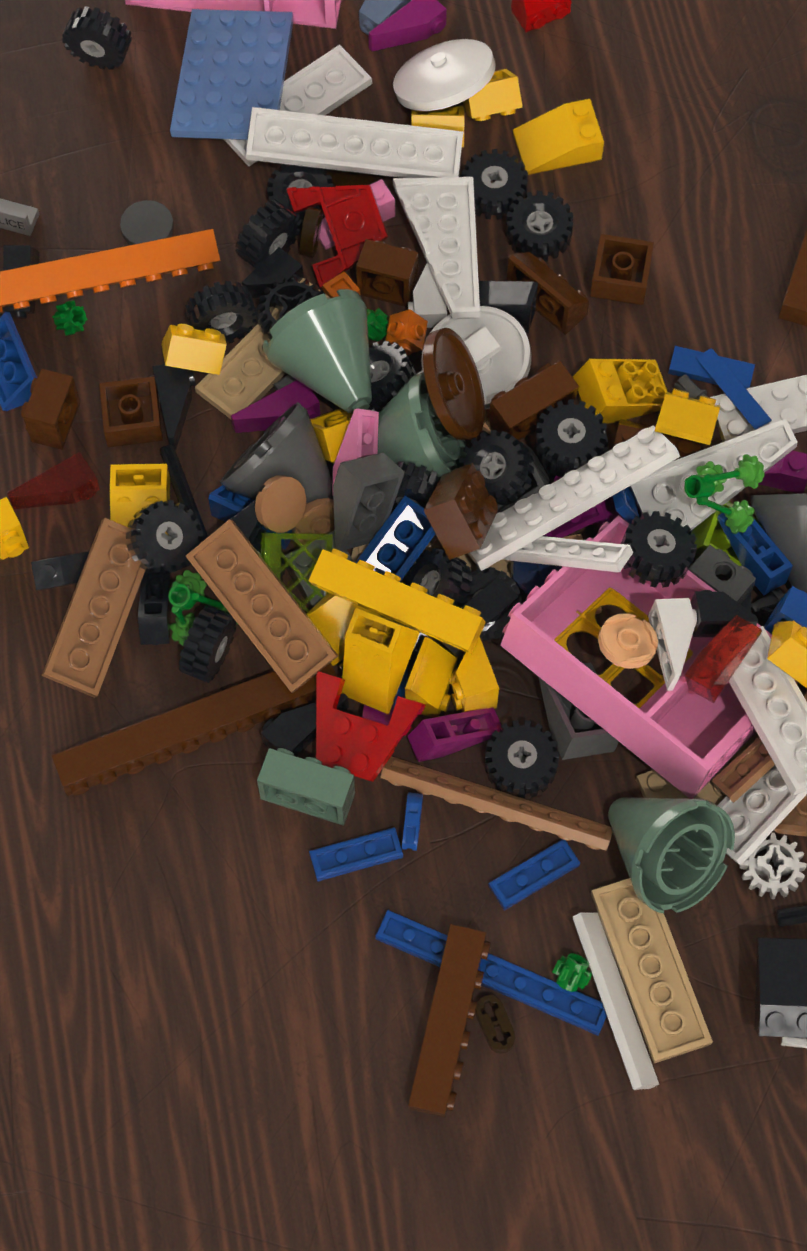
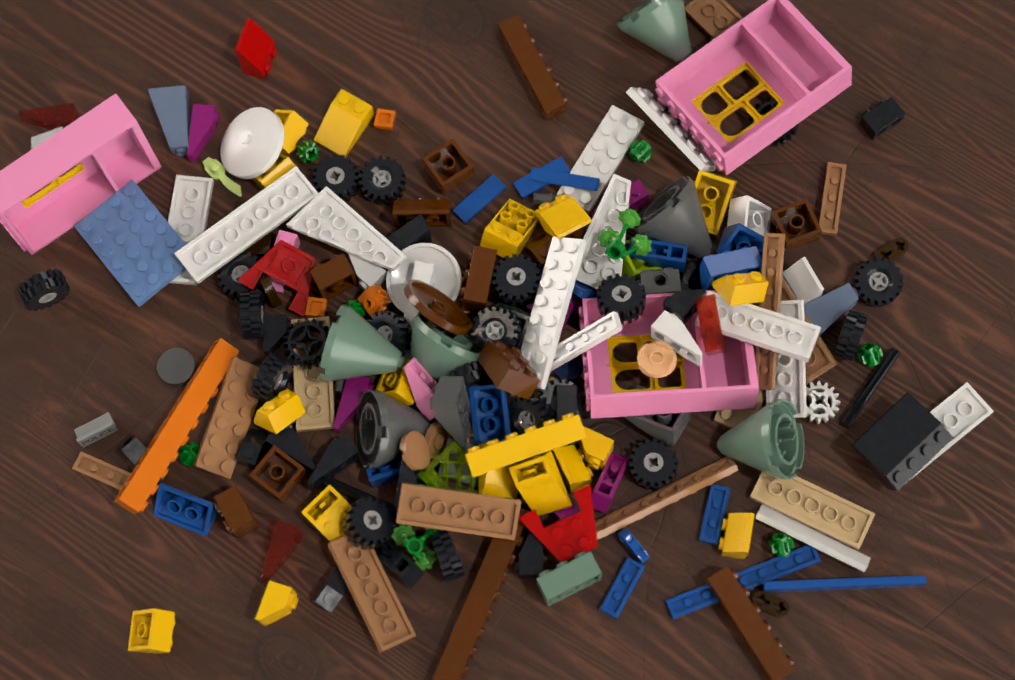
camera: 40 degrees left, 5 degrees up
(133, 363) = (253, 448): none -> black slope
(134, 319) = (228, 421): none -> medium nougat plate
(199, 449) = (336, 458): none -> black slope
(383, 78) = (217, 171): none -> yellowish green piece
(498, 128) = (307, 151): none -> green gear
(533, 916) = (737, 535): none -> yellow slope
(599, 1082) = (844, 584): none -> blue tile
(606, 170) = (384, 119): none -> orange plate
(623, 332) = (479, 199): none -> blue tile

